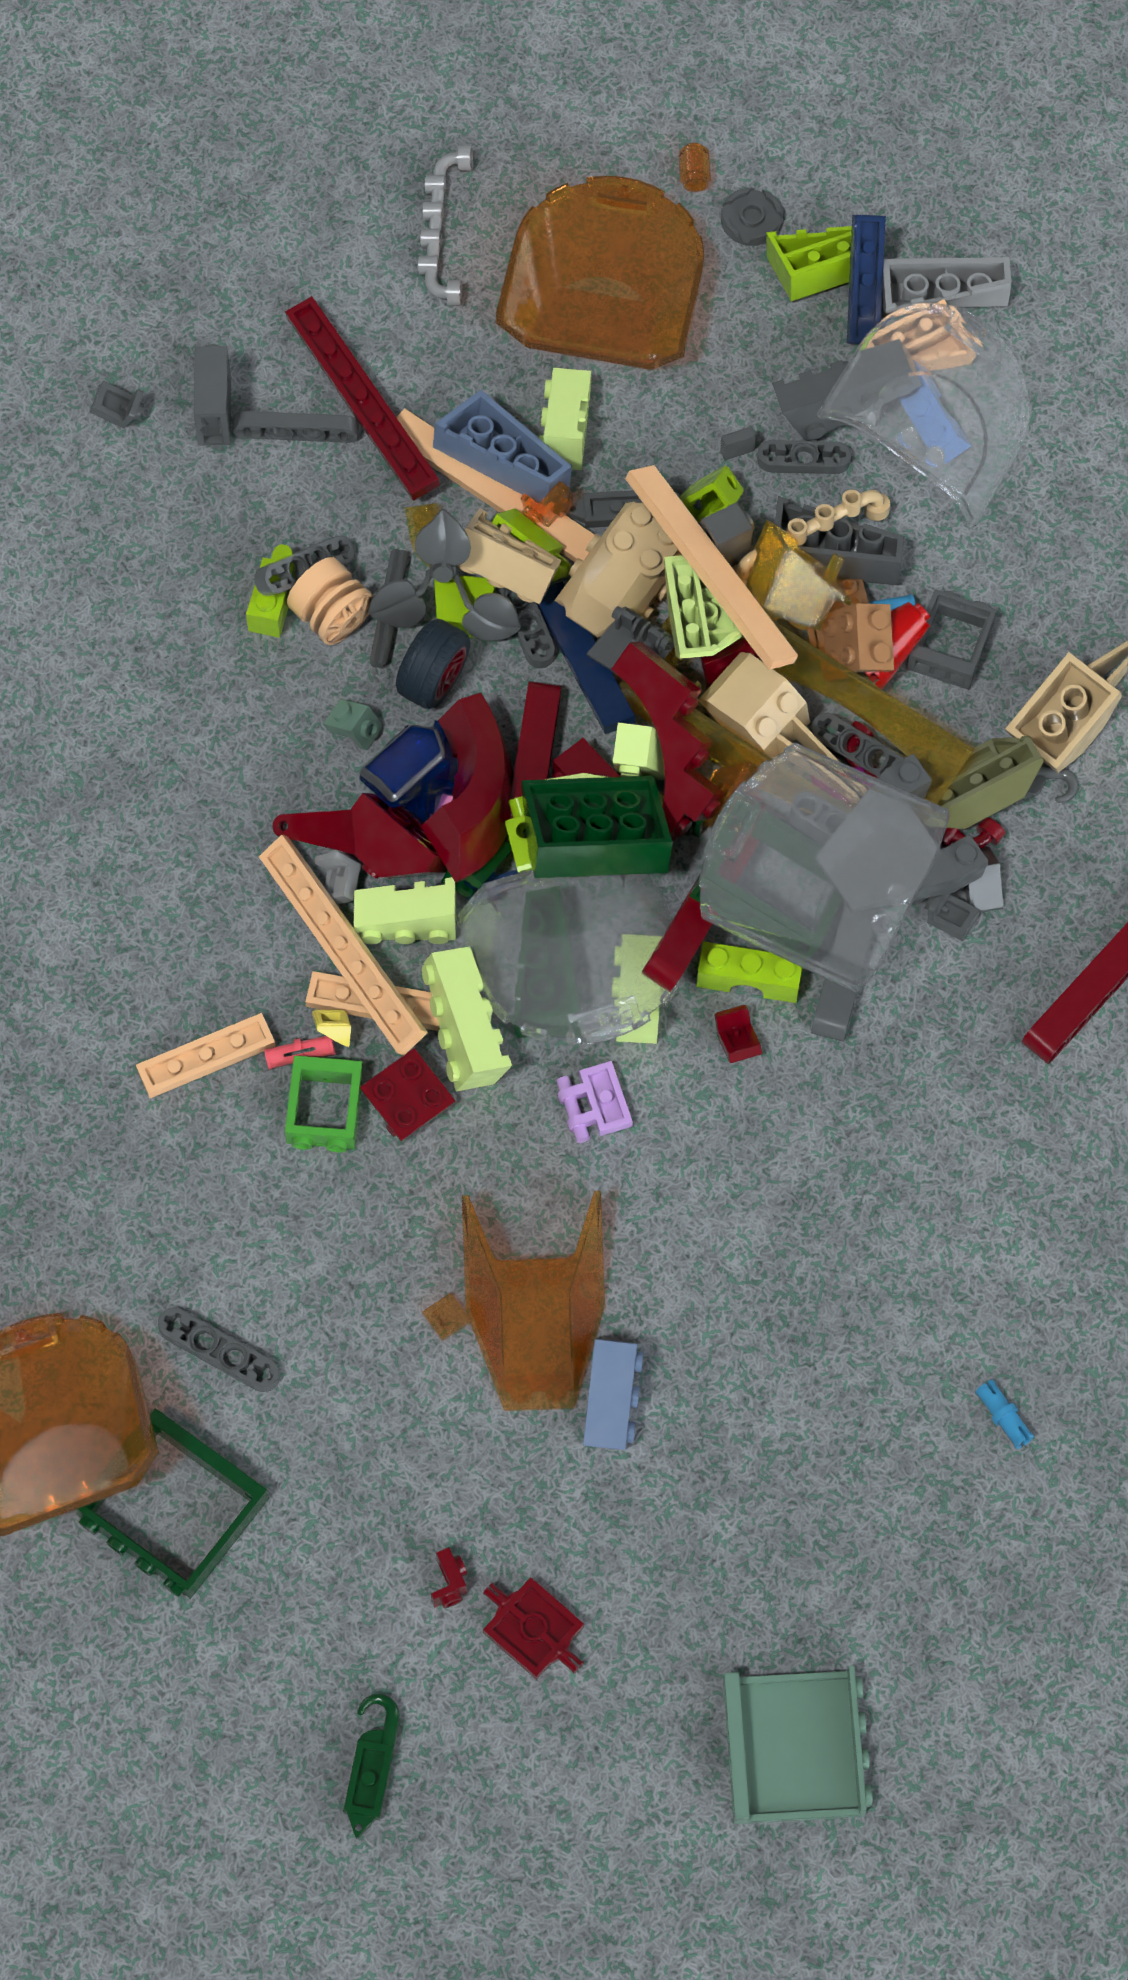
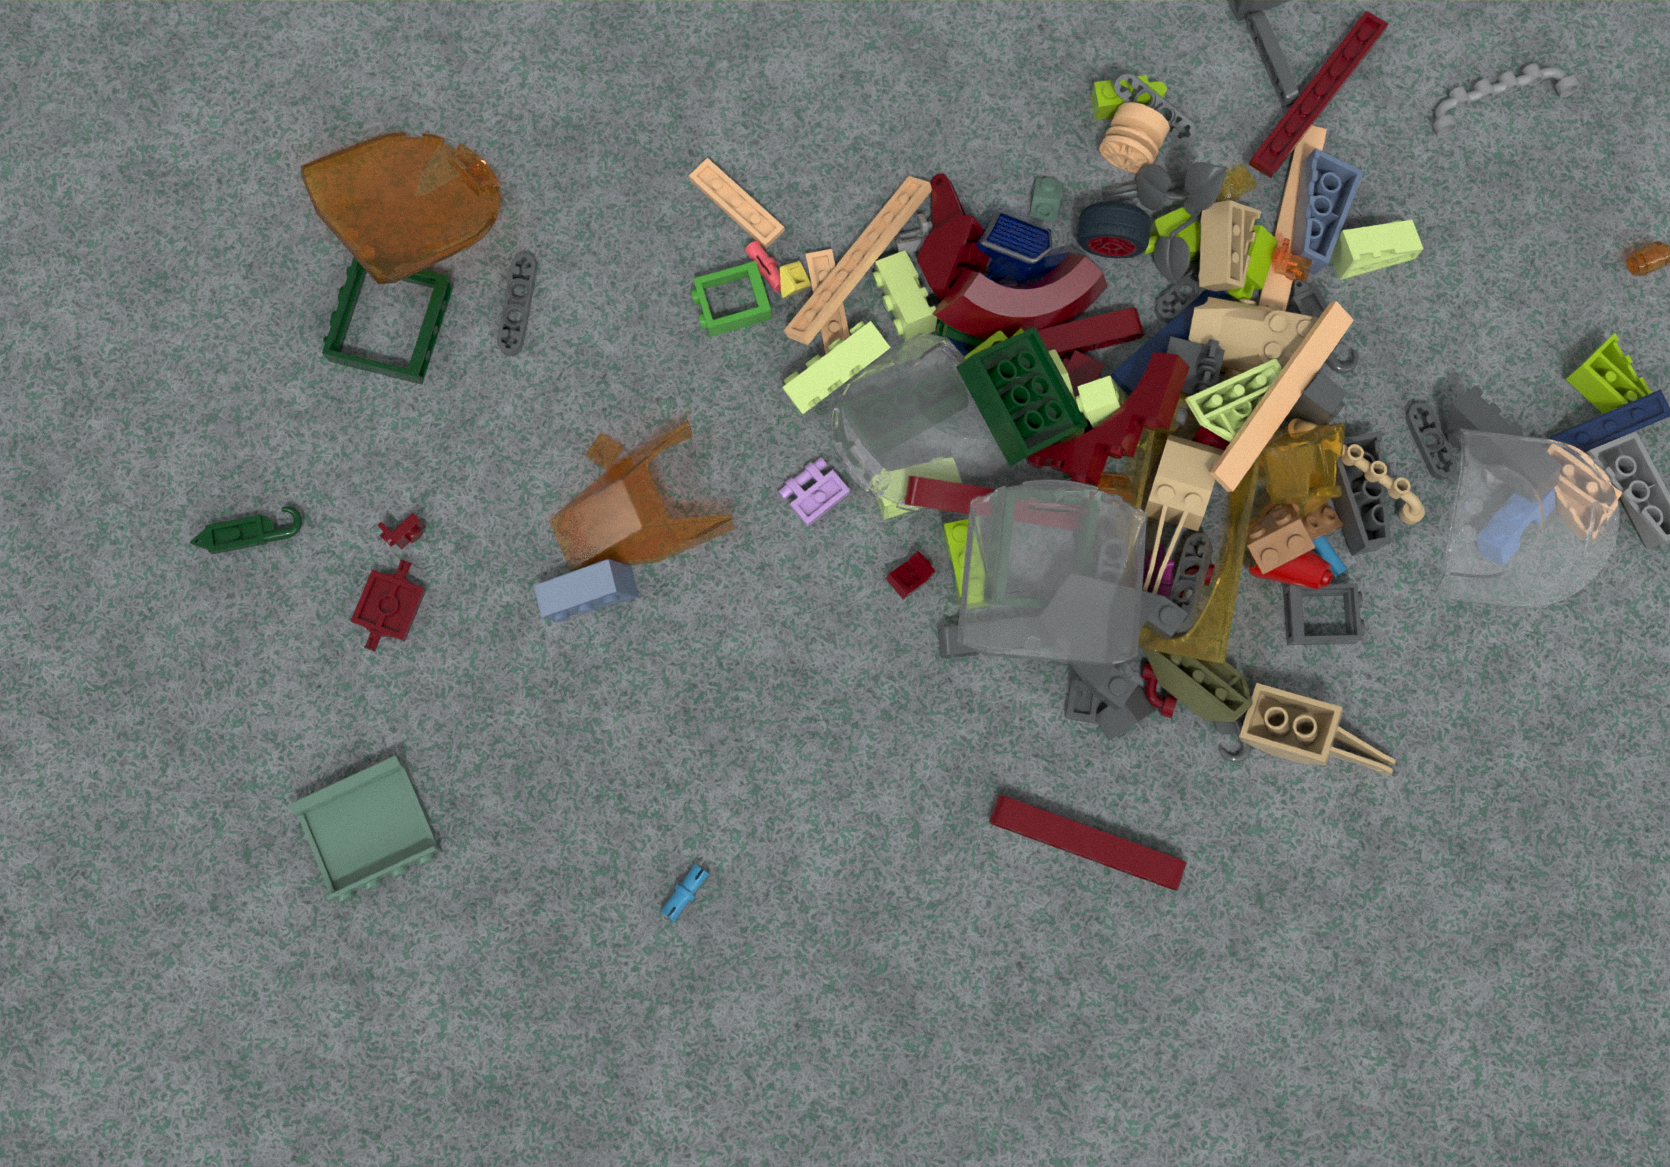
camera: 70 degrees right, 10 degrees up
(407, 1095) = (760, 353): dark red hinge -> none
(604, 274) = (1515, 223): clear orange windscreen -> none
(714, 493) = (1365, 385): lime torso -> none
(737, 443) = (1416, 385): dark grey tile -> none
(750, 227) = (1629, 330): dark grey tile -> none

